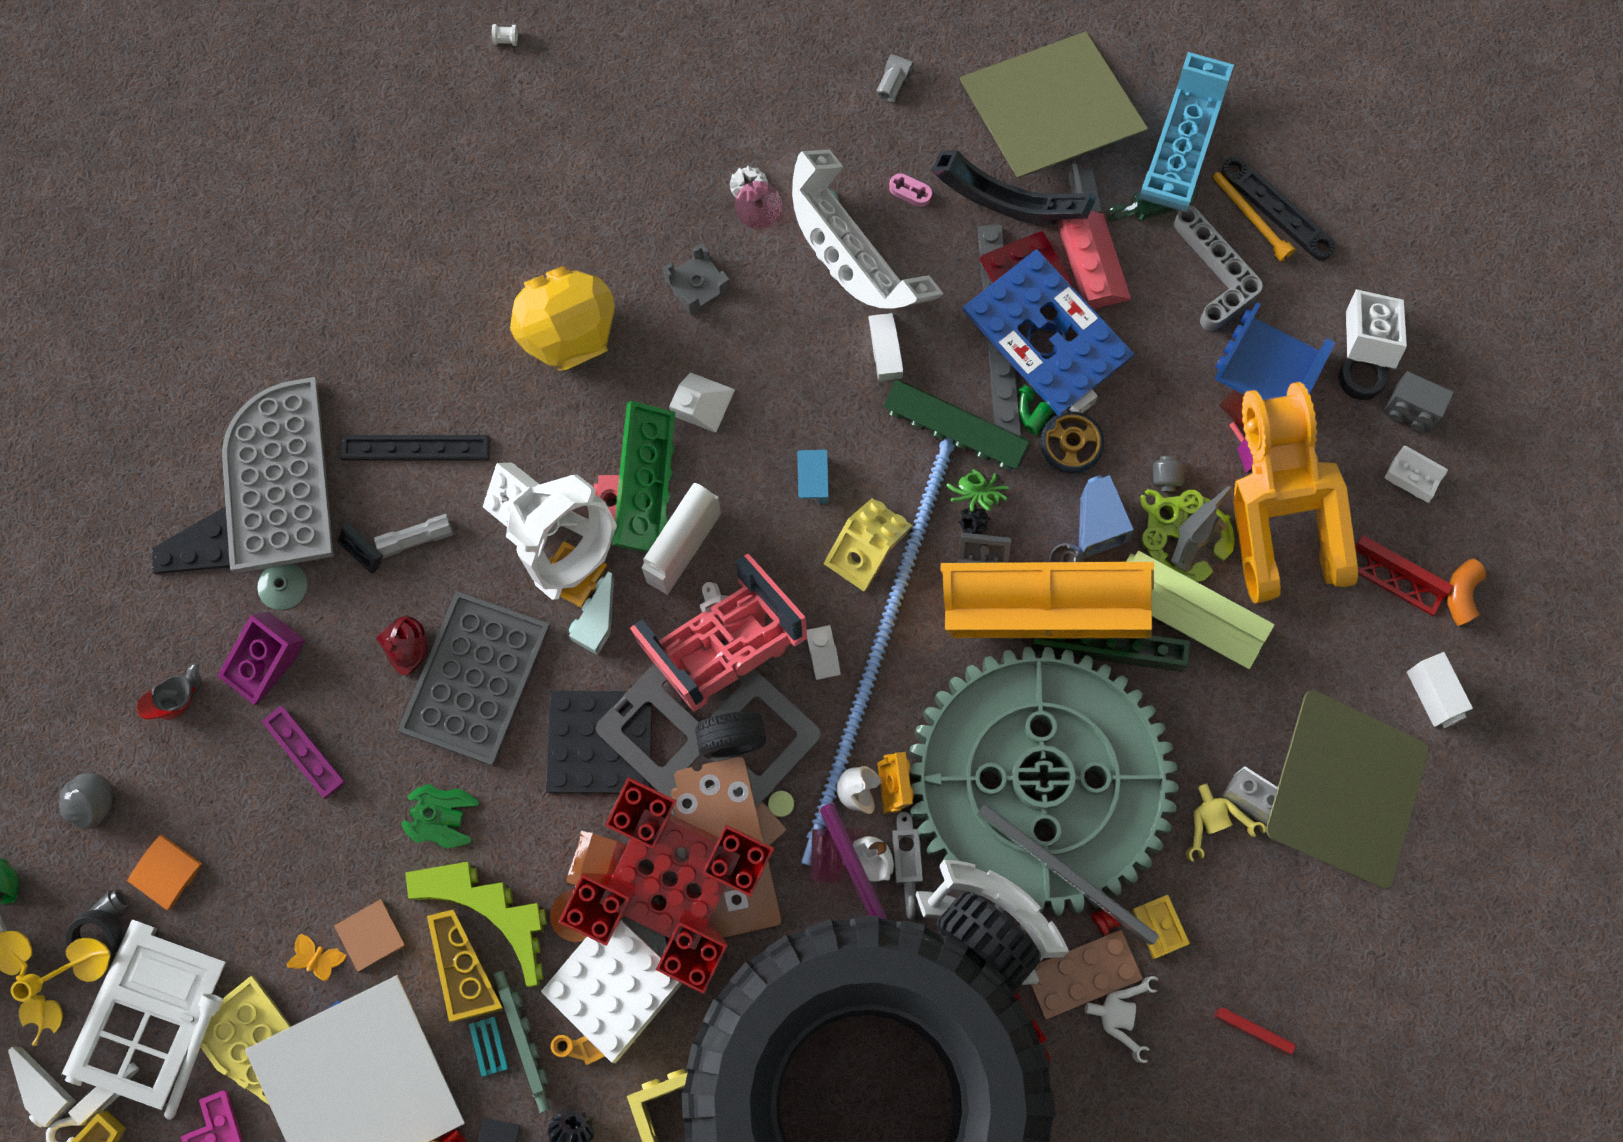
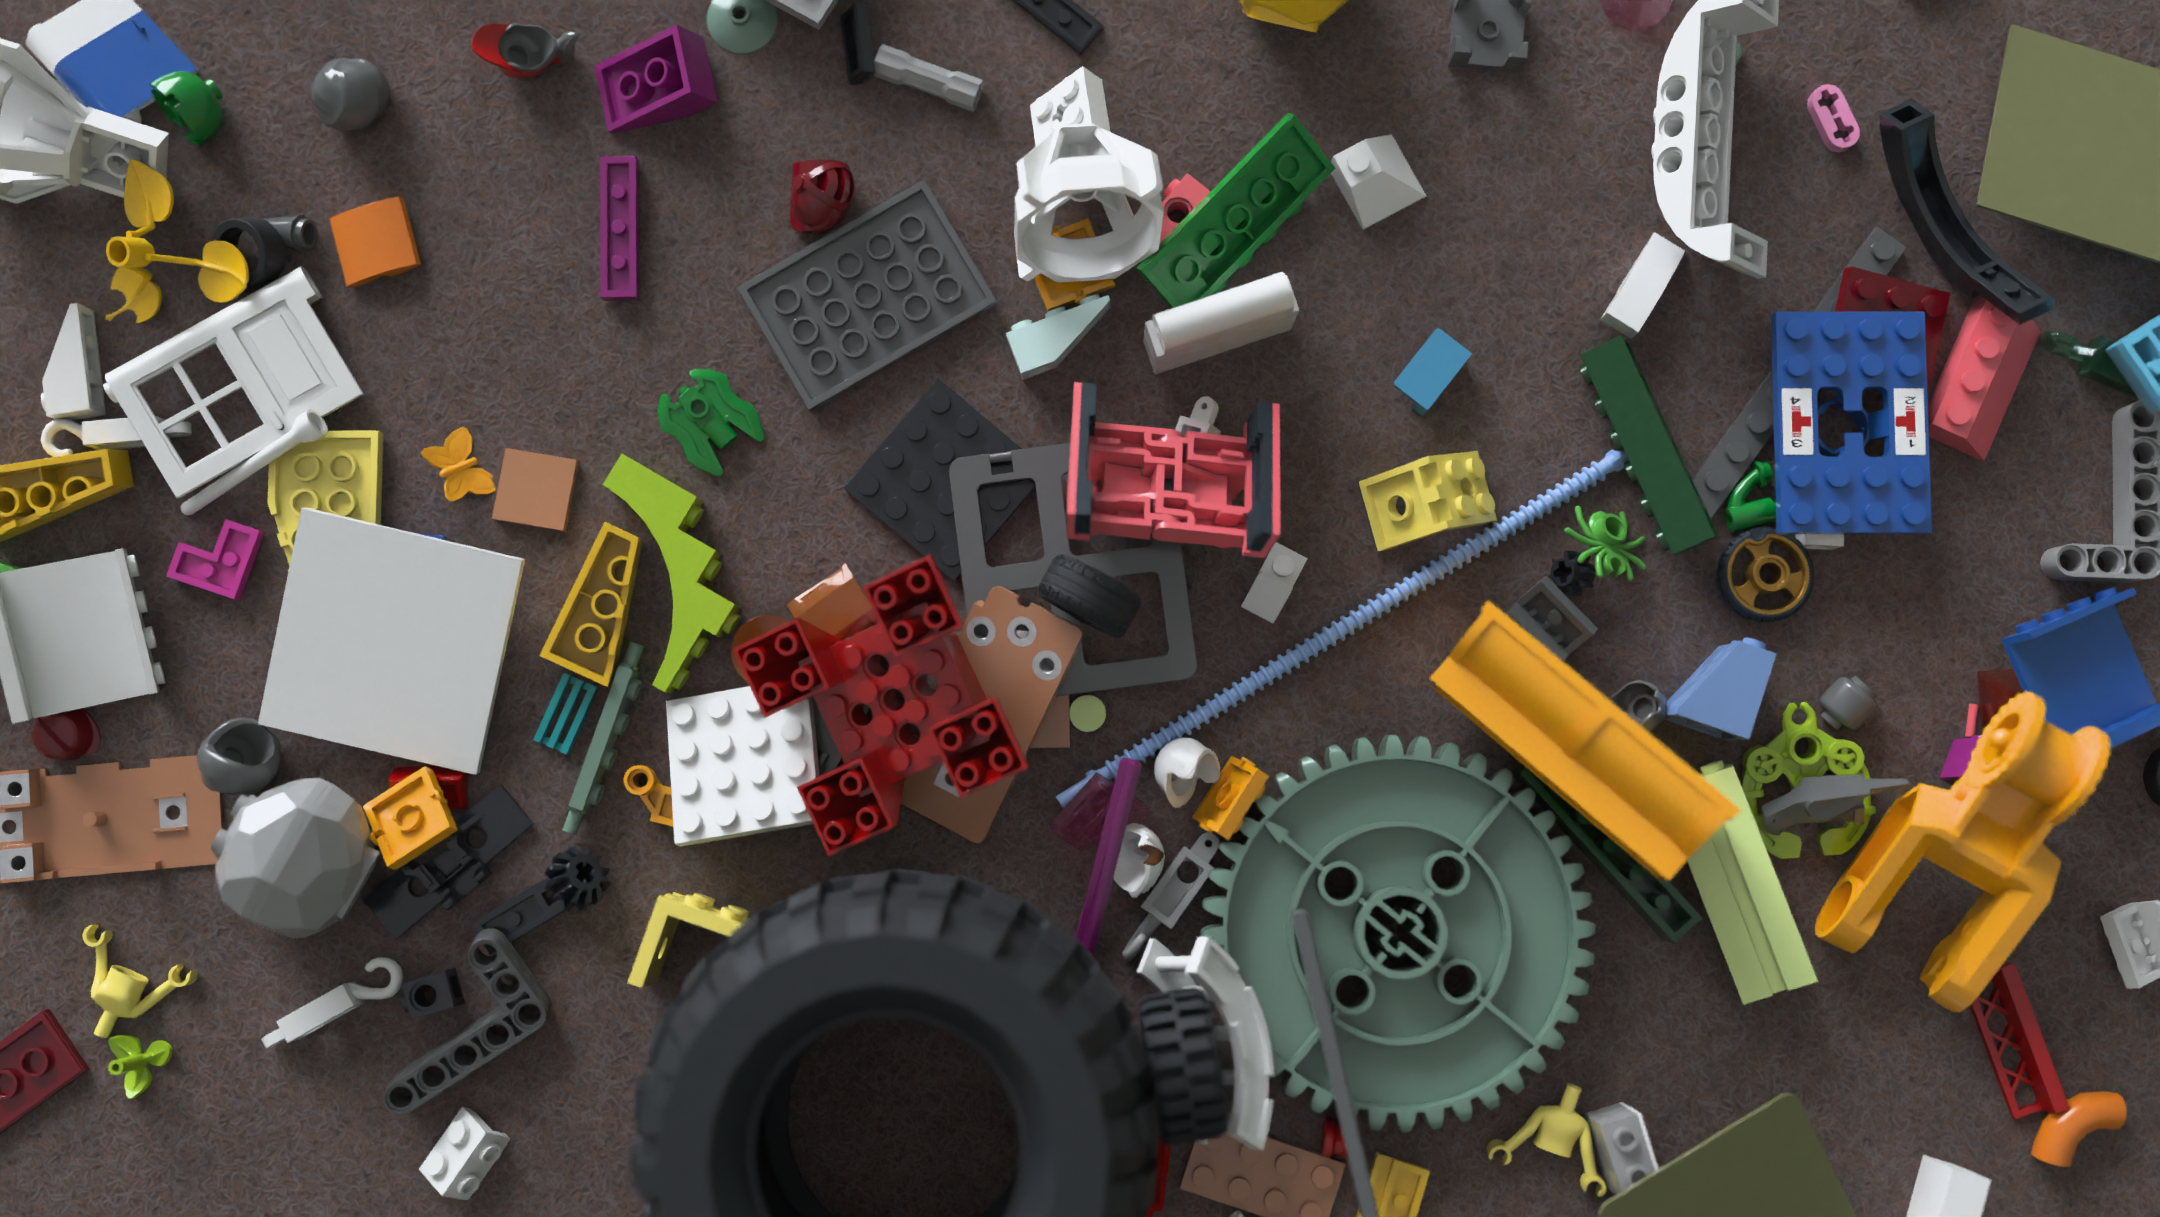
camera: 45 degrees right, 10 degrees up
(1084, 182) = (2050, 273): dark grey panel -> none

